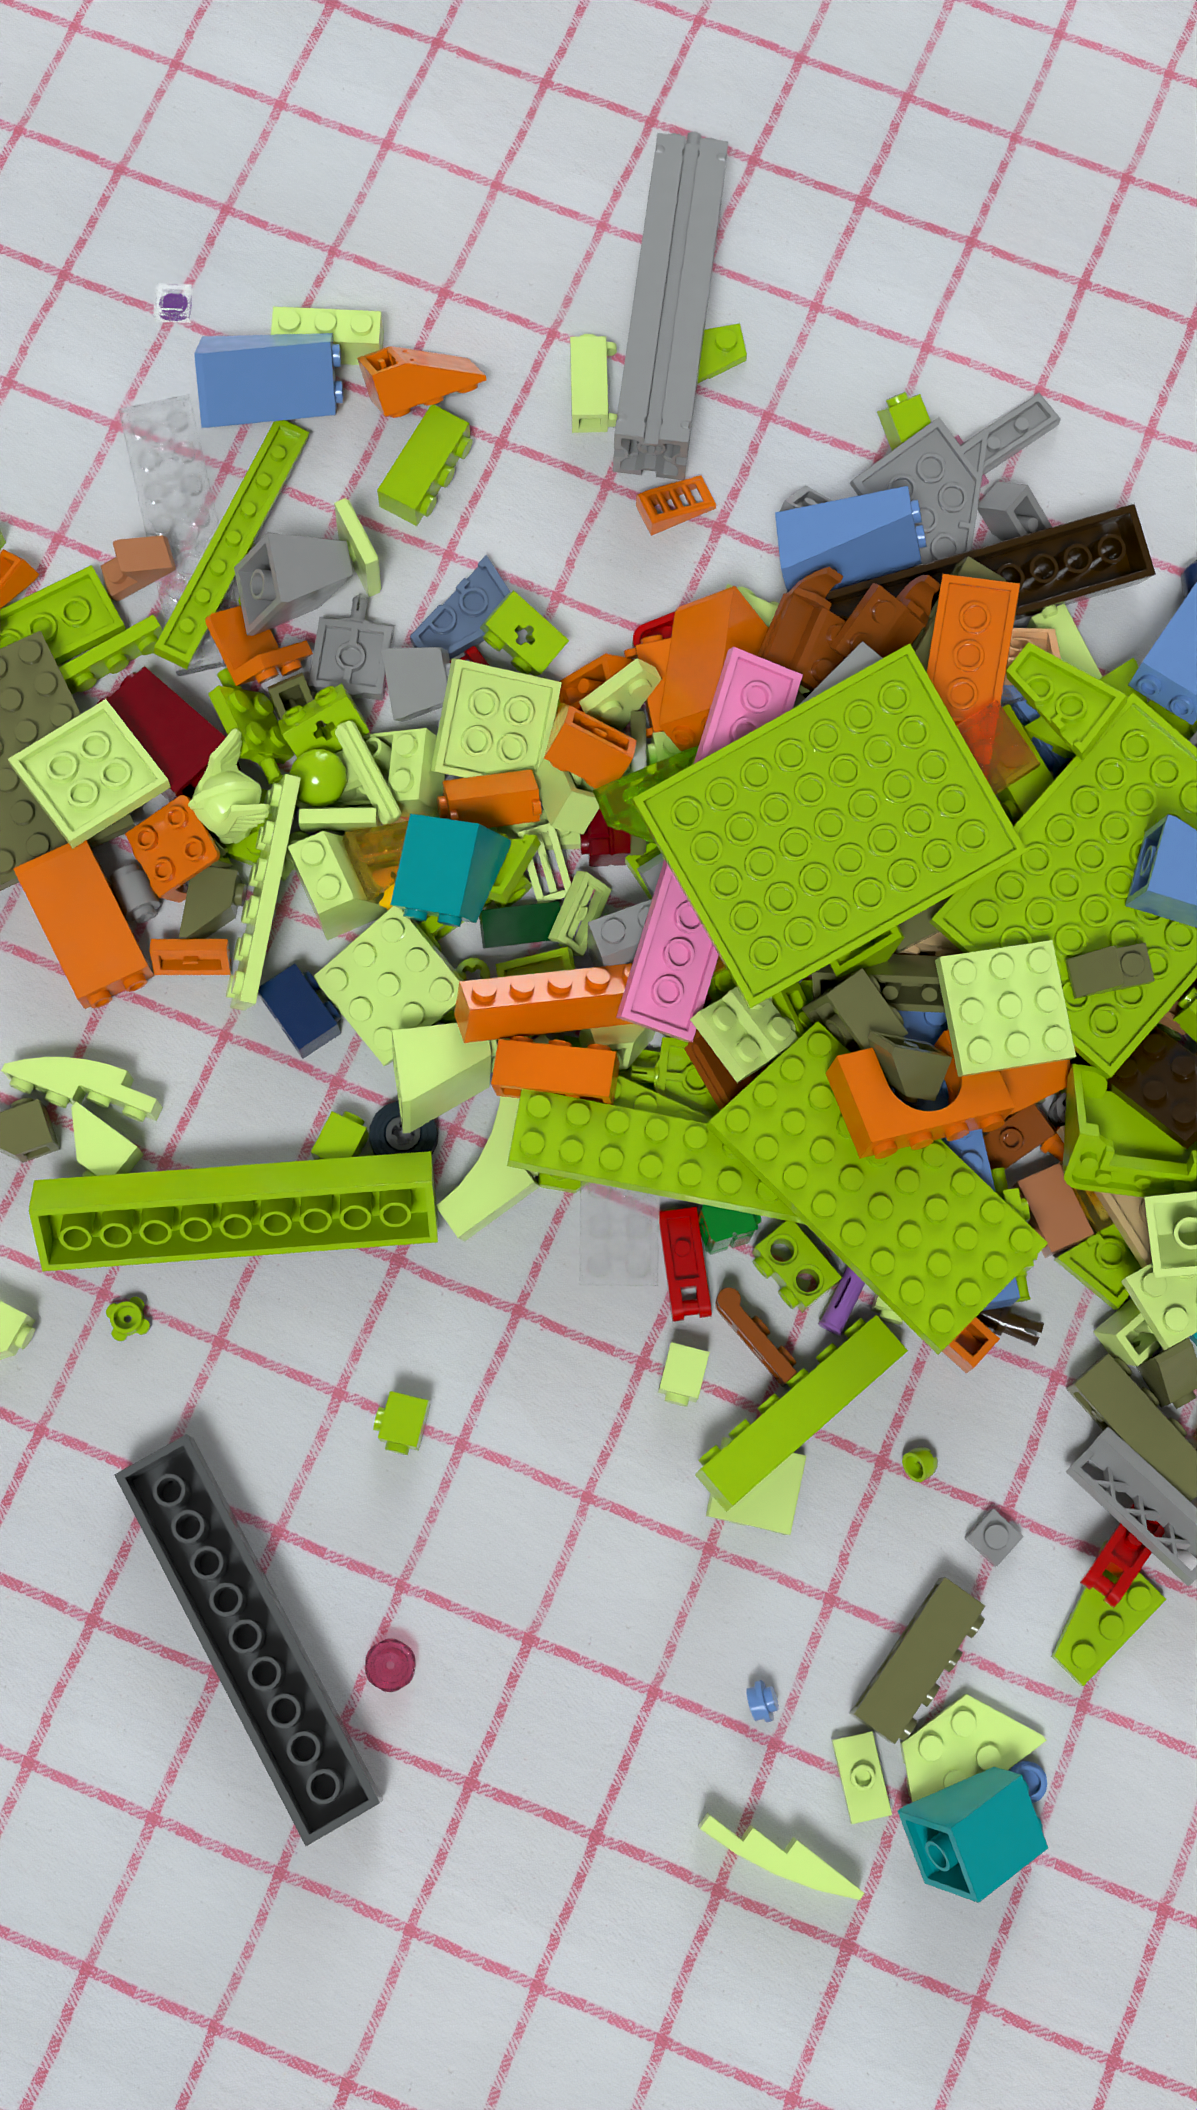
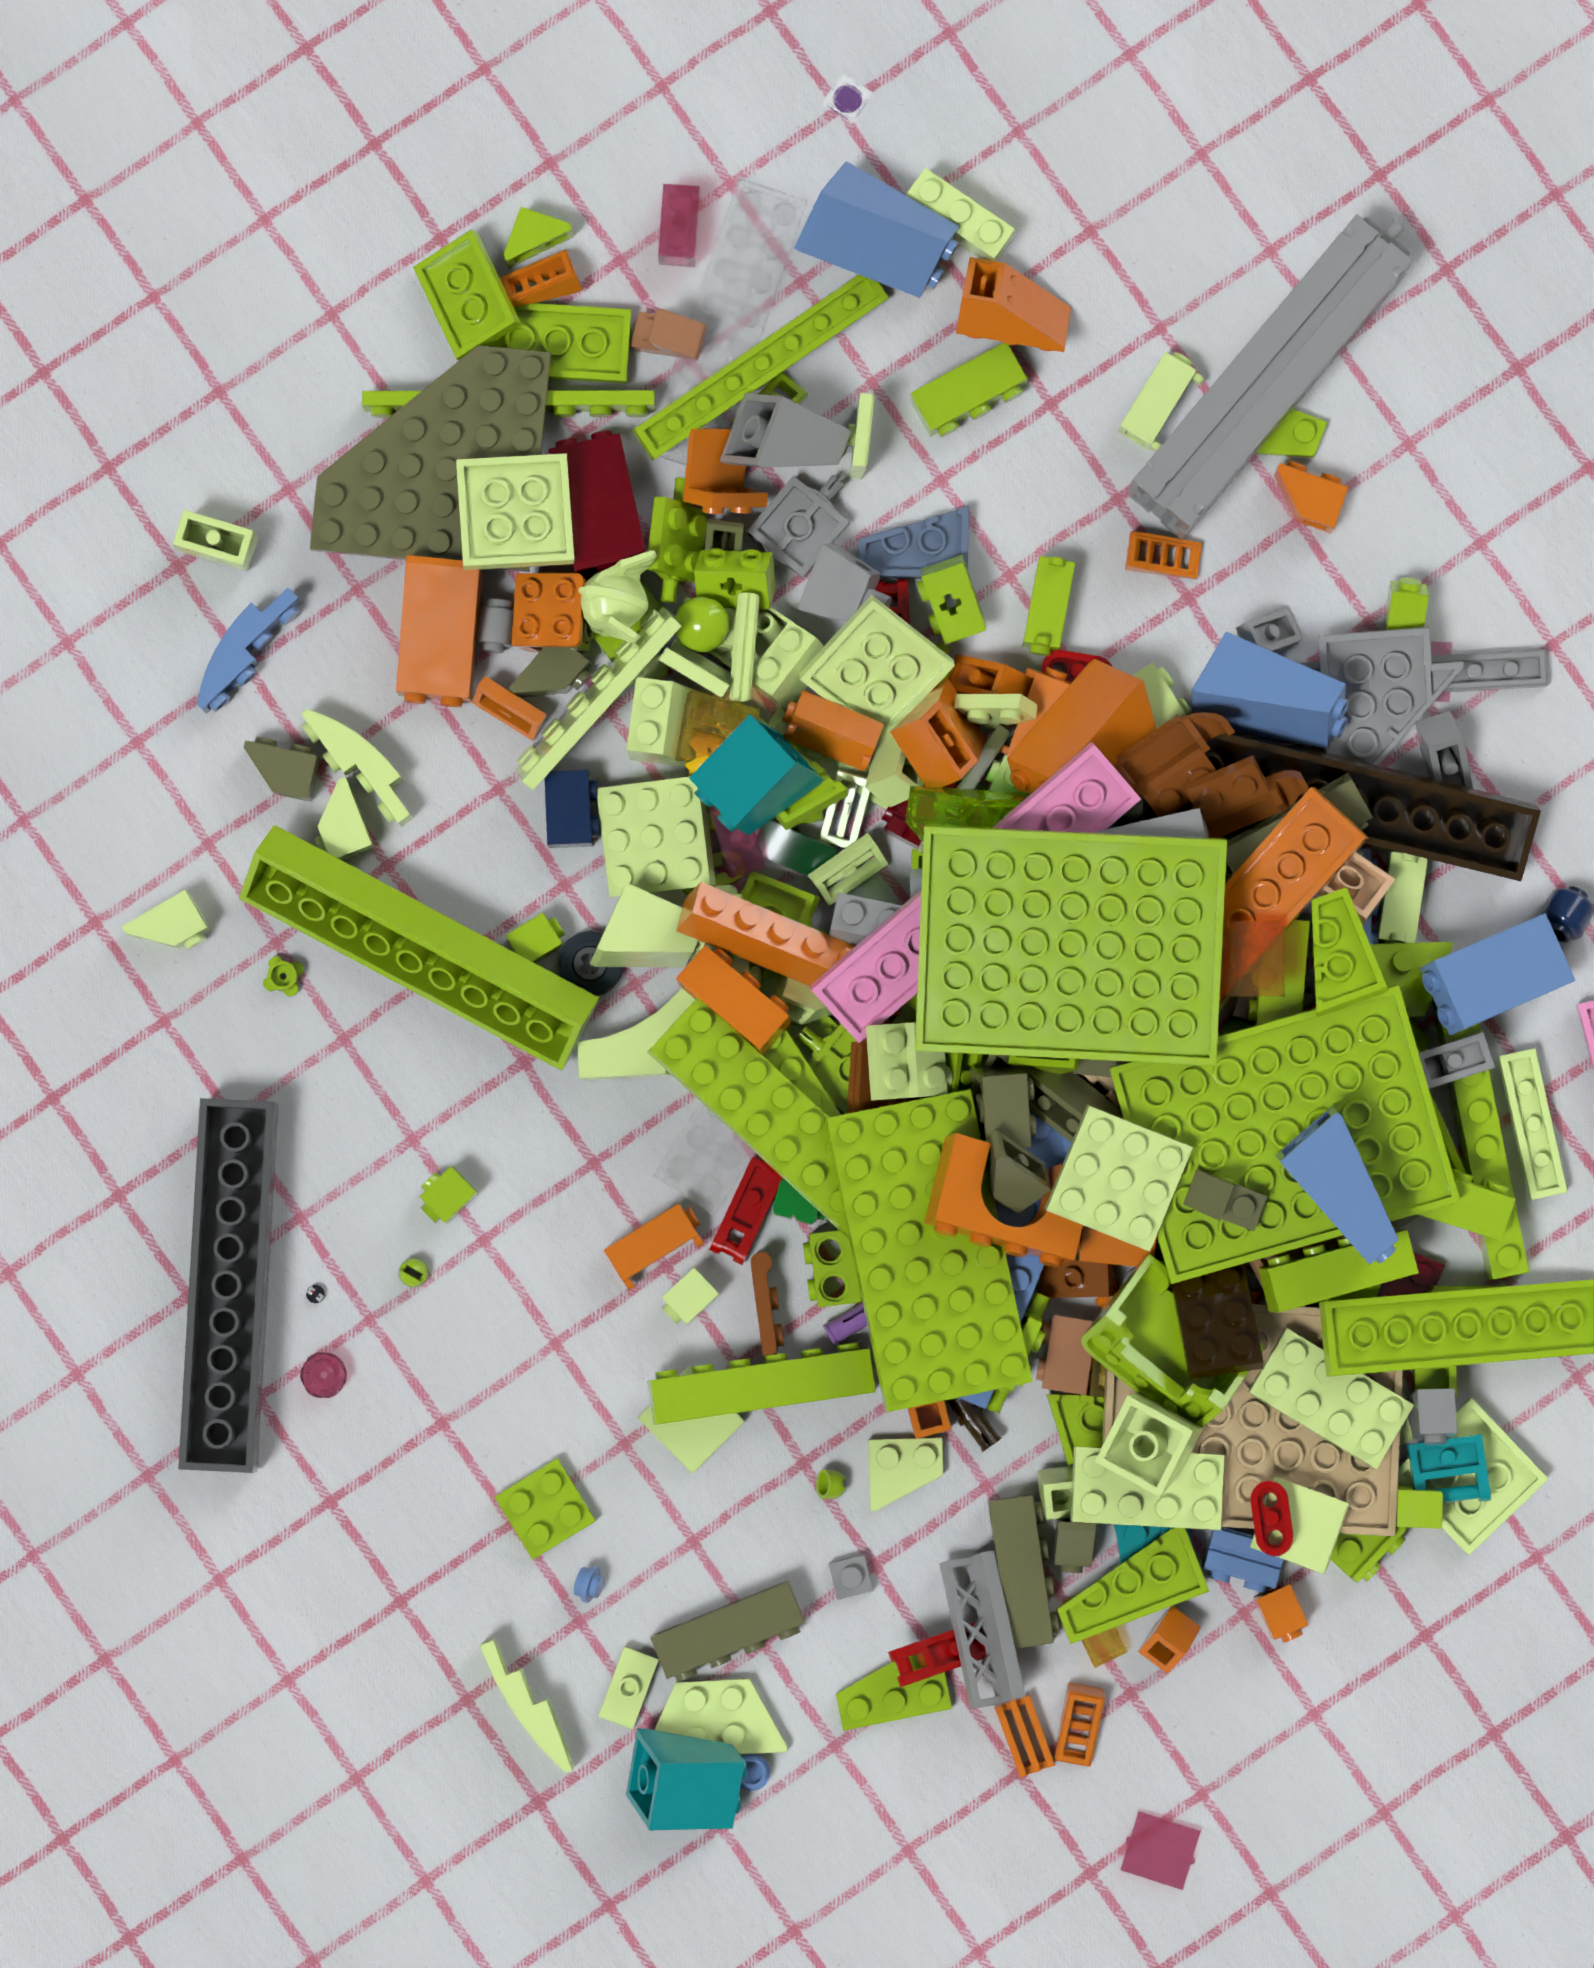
camera: 40 degrees right, 10 degrees up
(91, 475) = (679, 225): none -> clear pink brick
(335, 1593) = (315, 1294): none -> black piece
(415, 1524) = (417, 1265): none -> lime hinge
(468, 945) = (739, 849): none -> clear pink plate
(606, 594) = (1048, 605): none -> lime brick
(618, 1345) = (653, 1242): none -> orange brick
(676, 1657) = (545, 1508): none -> lime plate
(766, 385) = (1311, 498): none -> orange slope
(972, 1408) = (902, 1467): none -> yellowish green wing

